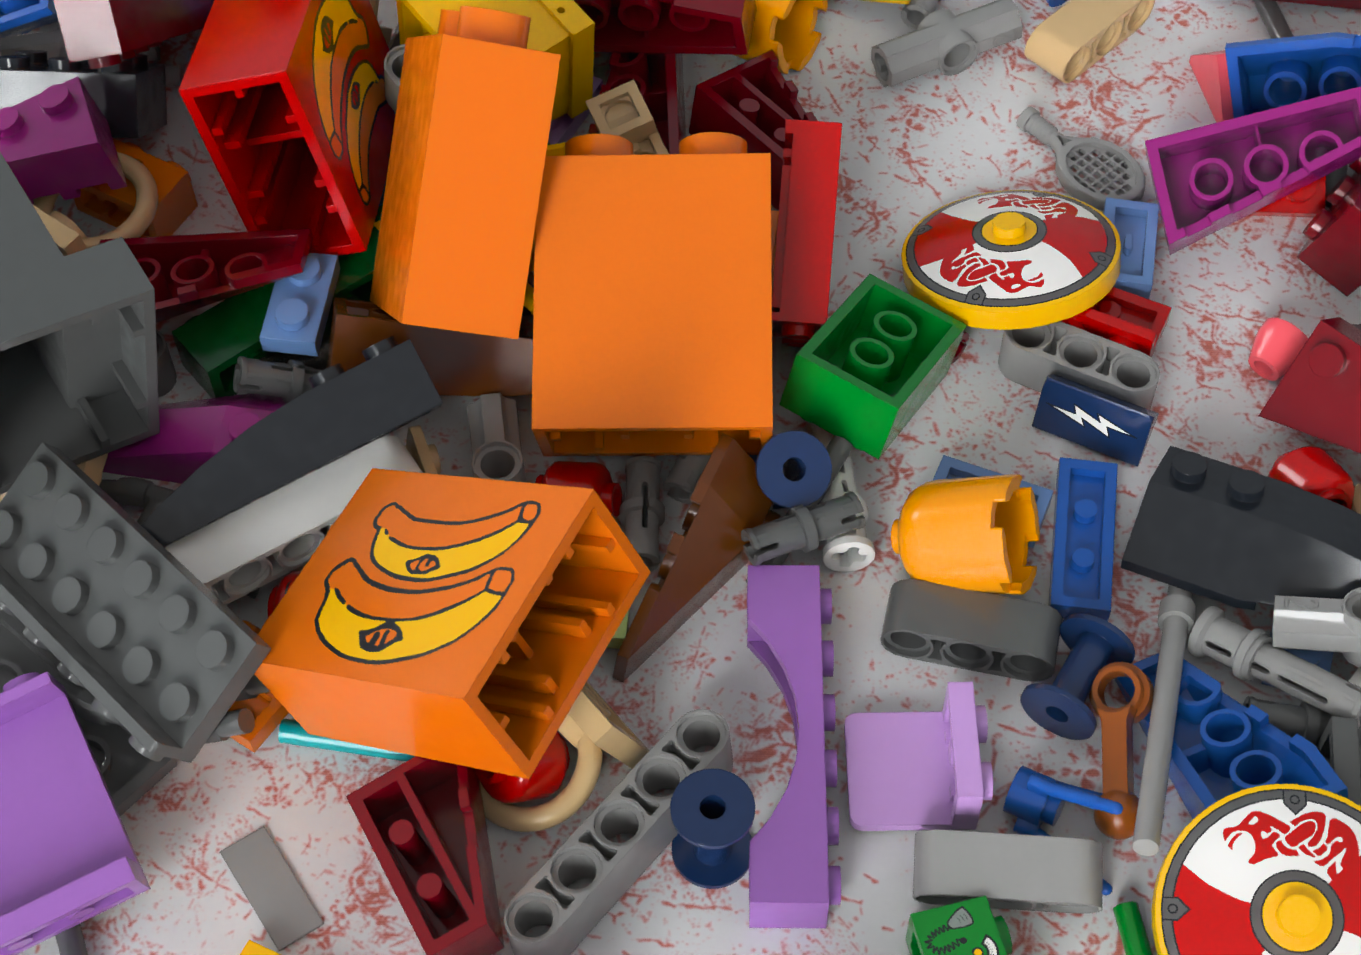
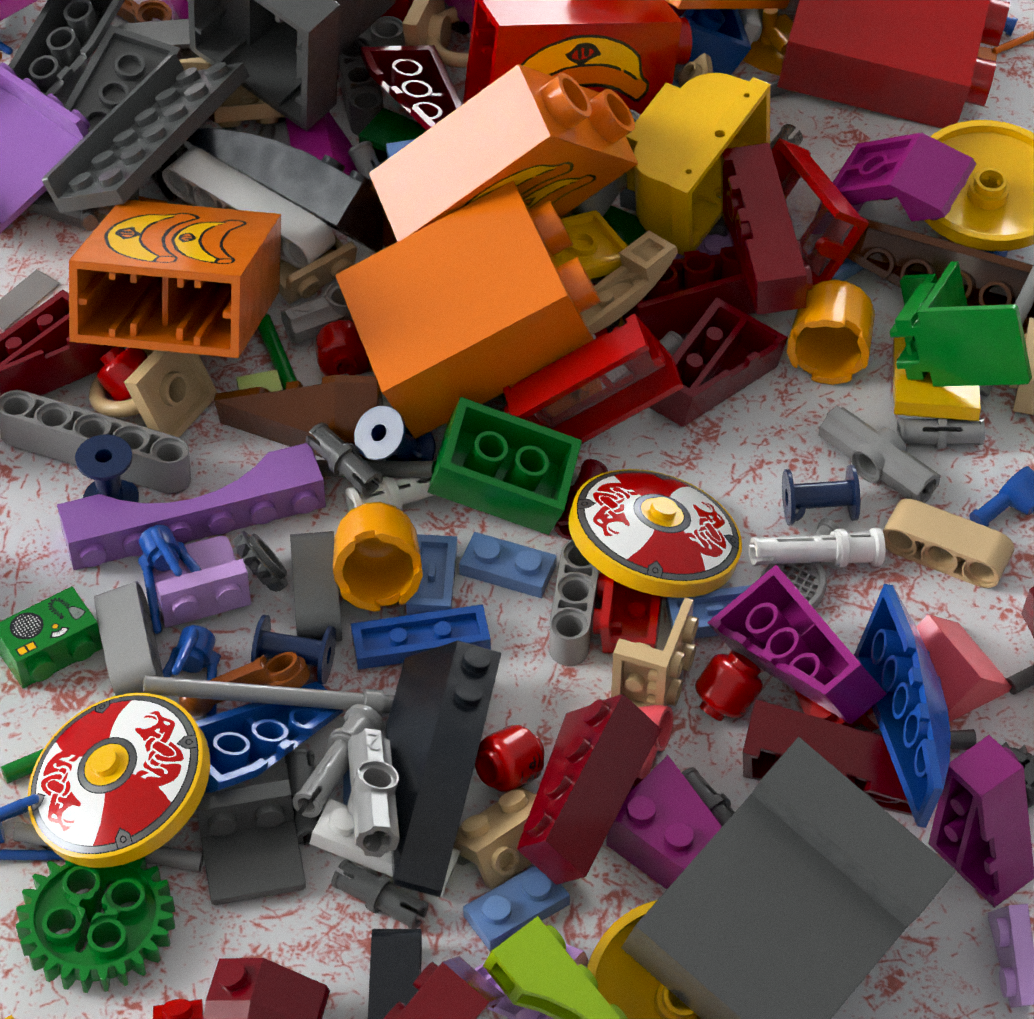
camera: 70 degrees right, 5 degrees down
(871, 788) = (163, 553): none -> blue plant
(923, 675) = (261, 561): none -> dark grey gear
(986, 421) = (507, 564): none -> medium blue plate
(990, 125) = (820, 495): none -> dark blue piece
(1073, 113) = (837, 548): none -> white pin
(1094, 419) = (532, 618): dark blue slope -> none
(1217, 295) = (653, 675): none -> tan bracket
(1251, 258) = (728, 686): none -> red head

